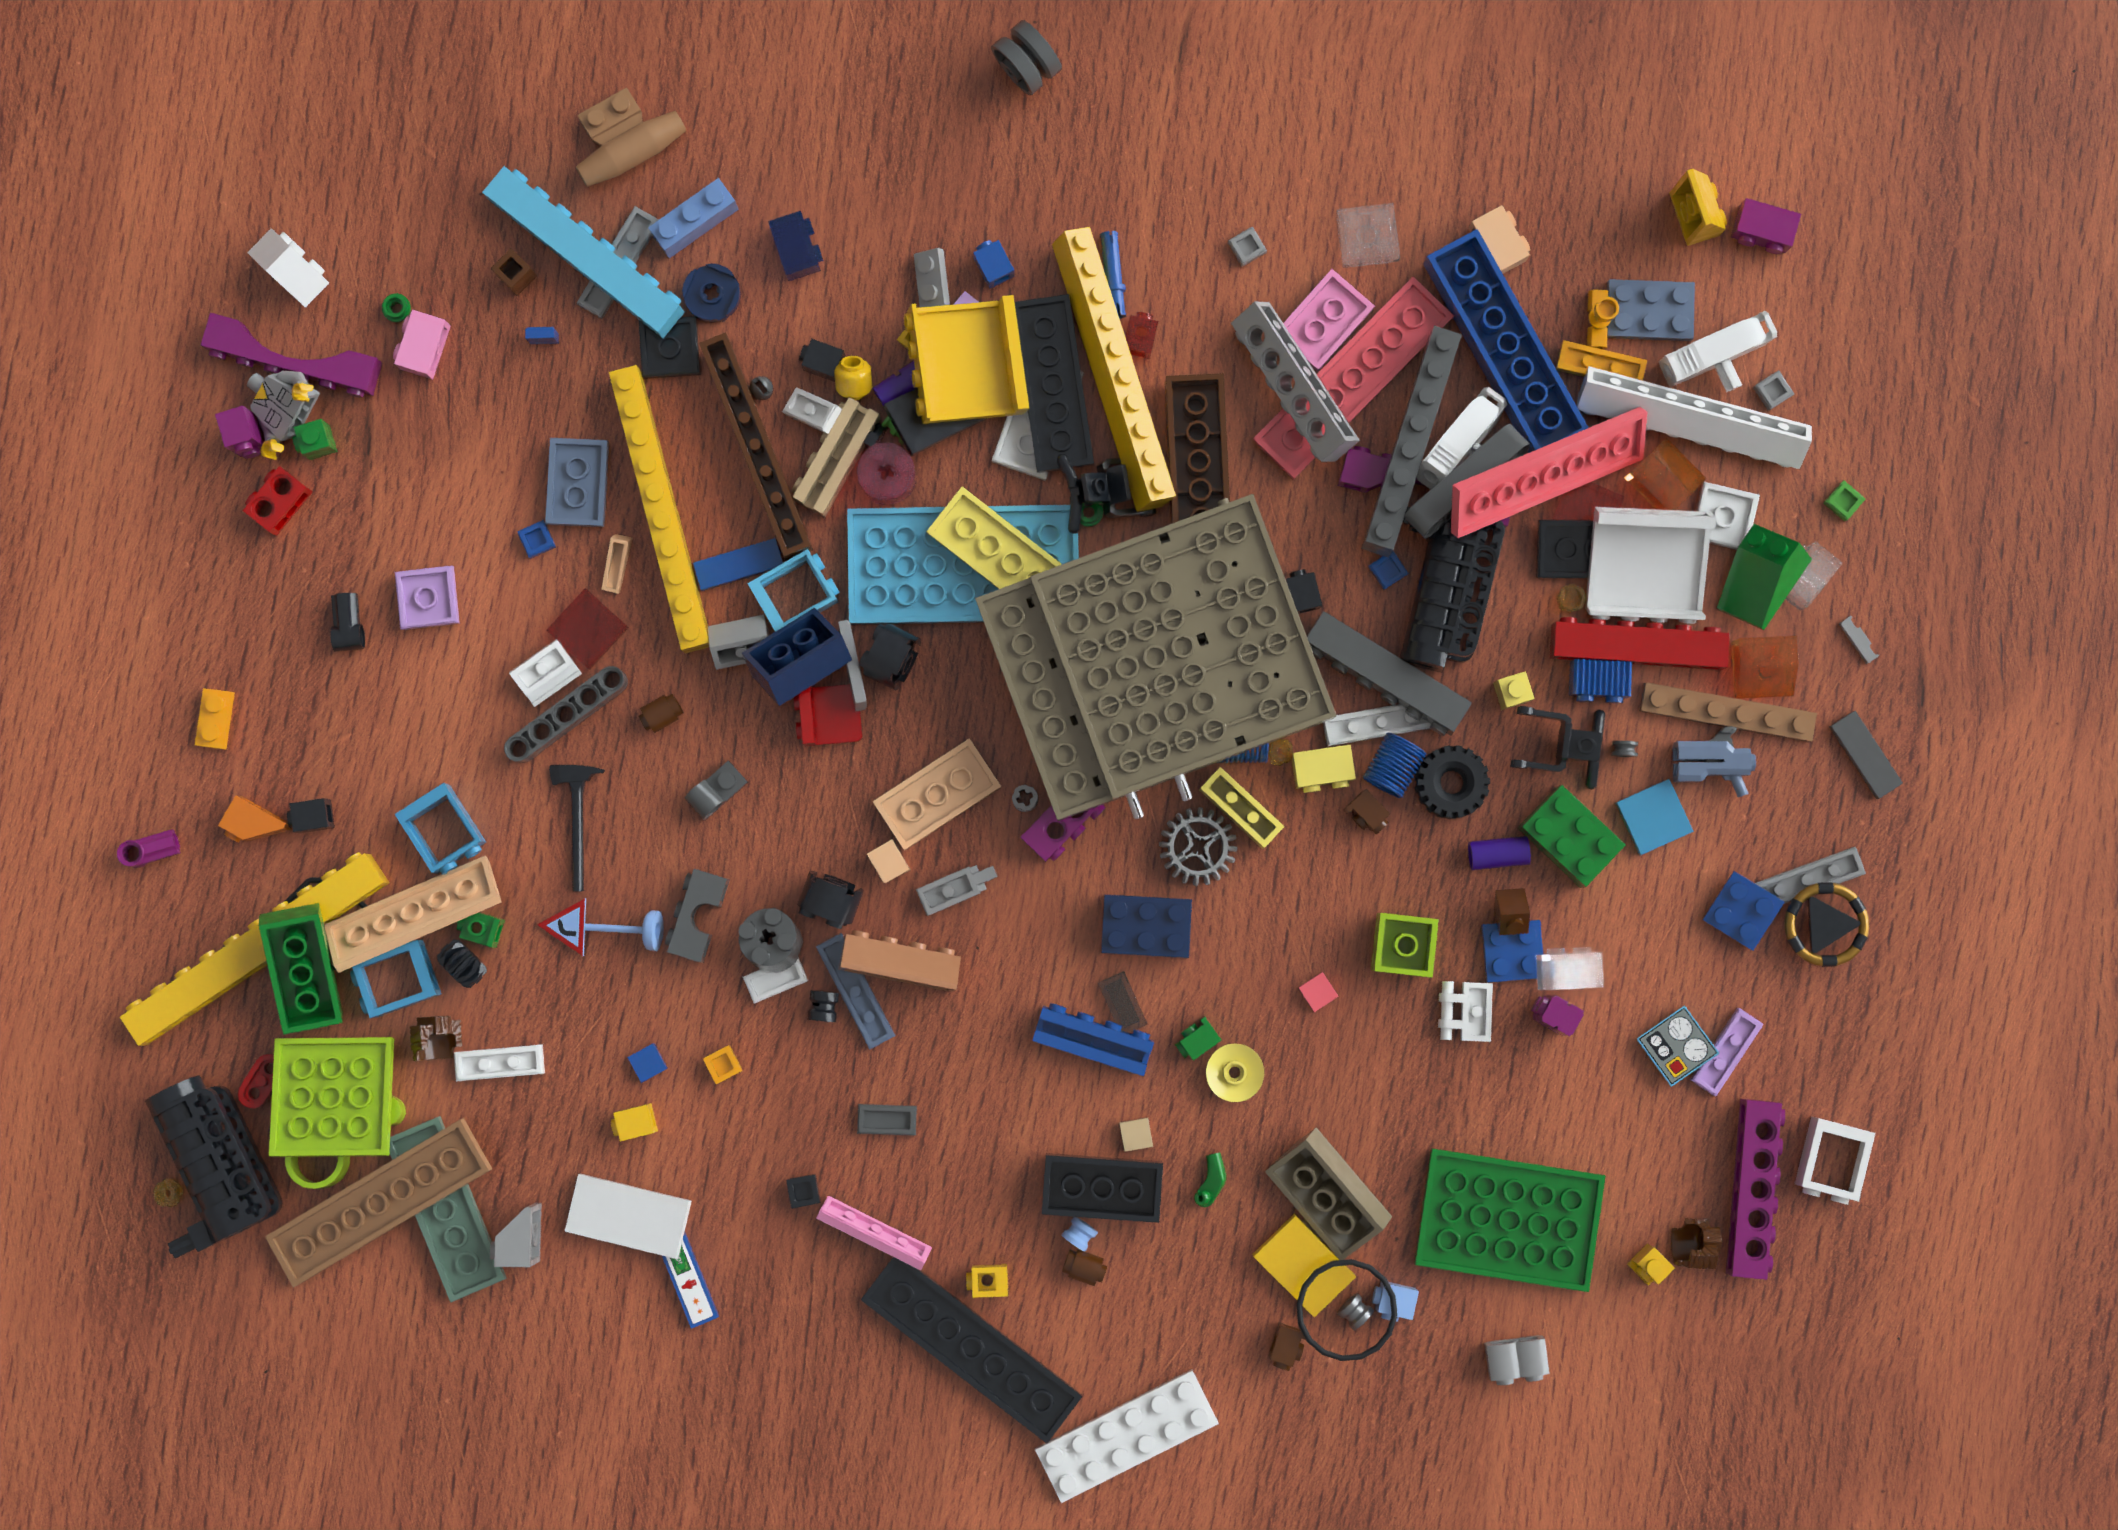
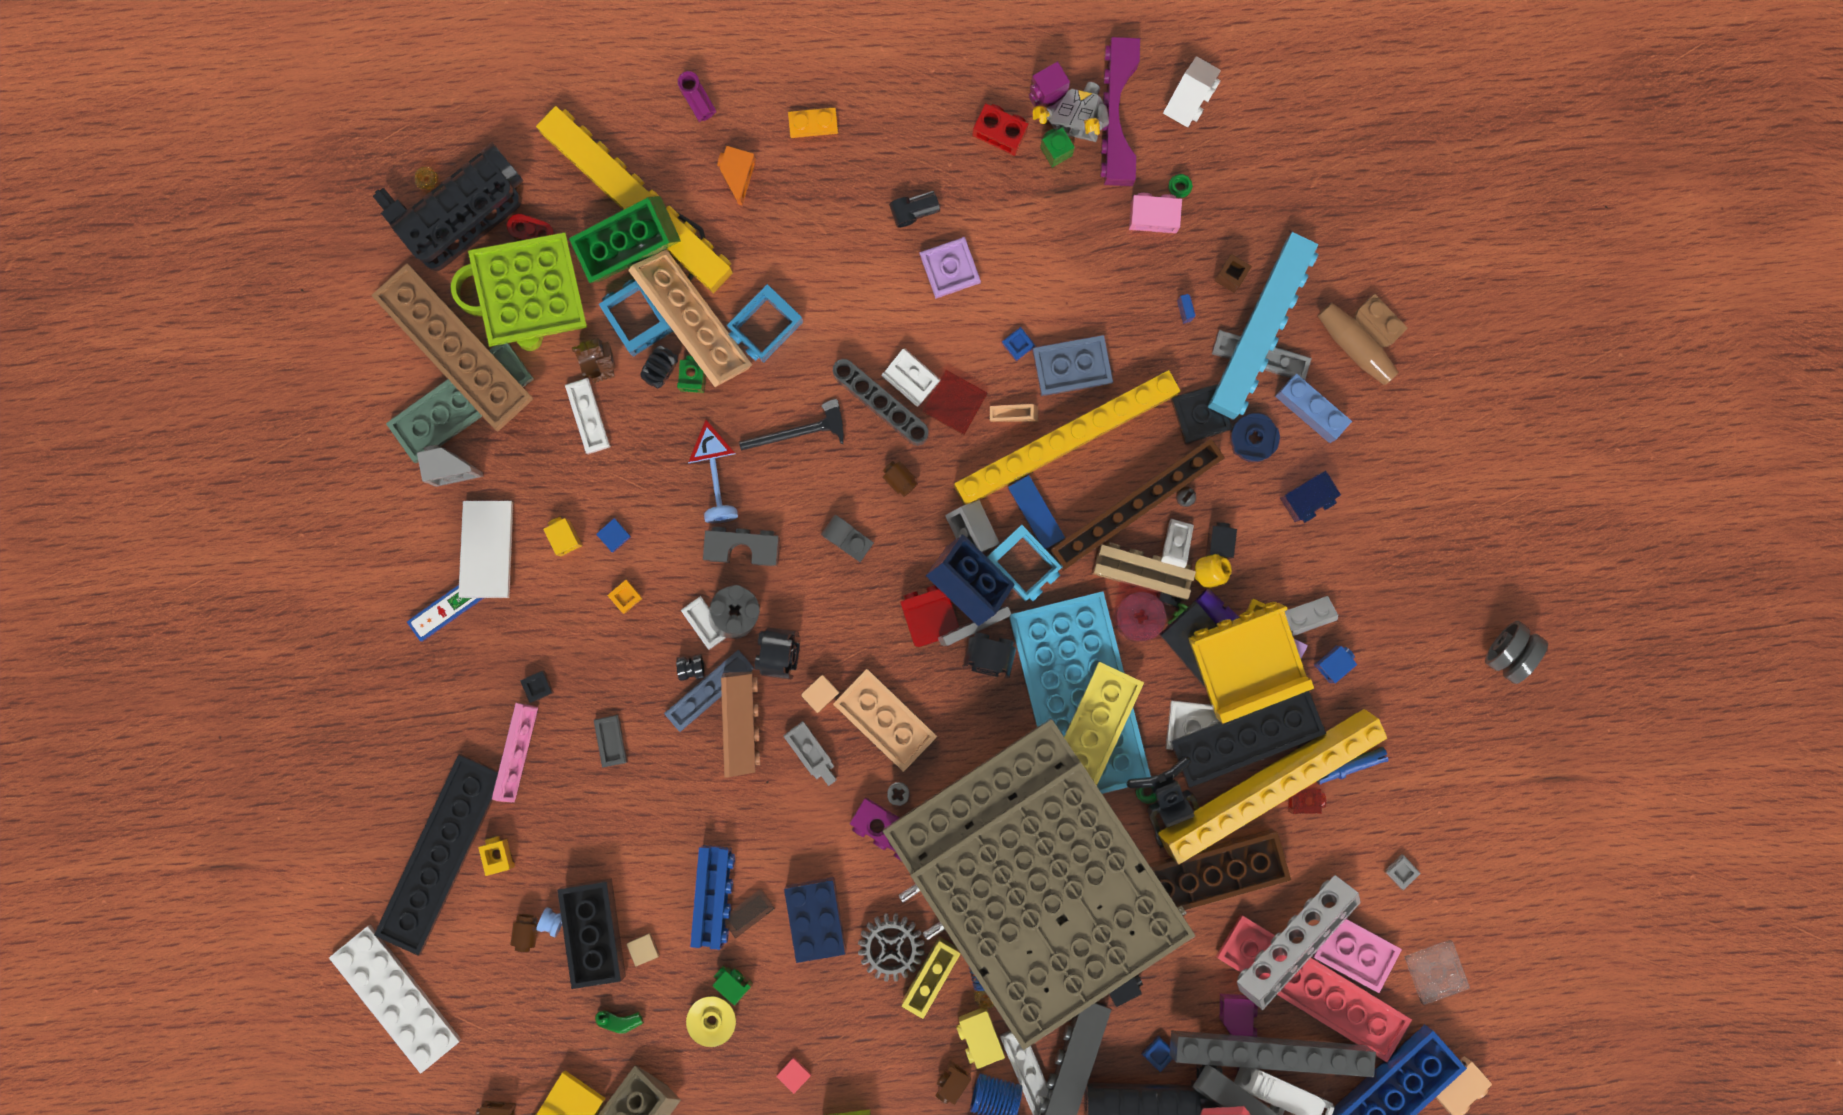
camera: 75 degrees right, 0 degrees up
(310, 815) = (752, 217): black brick -> none

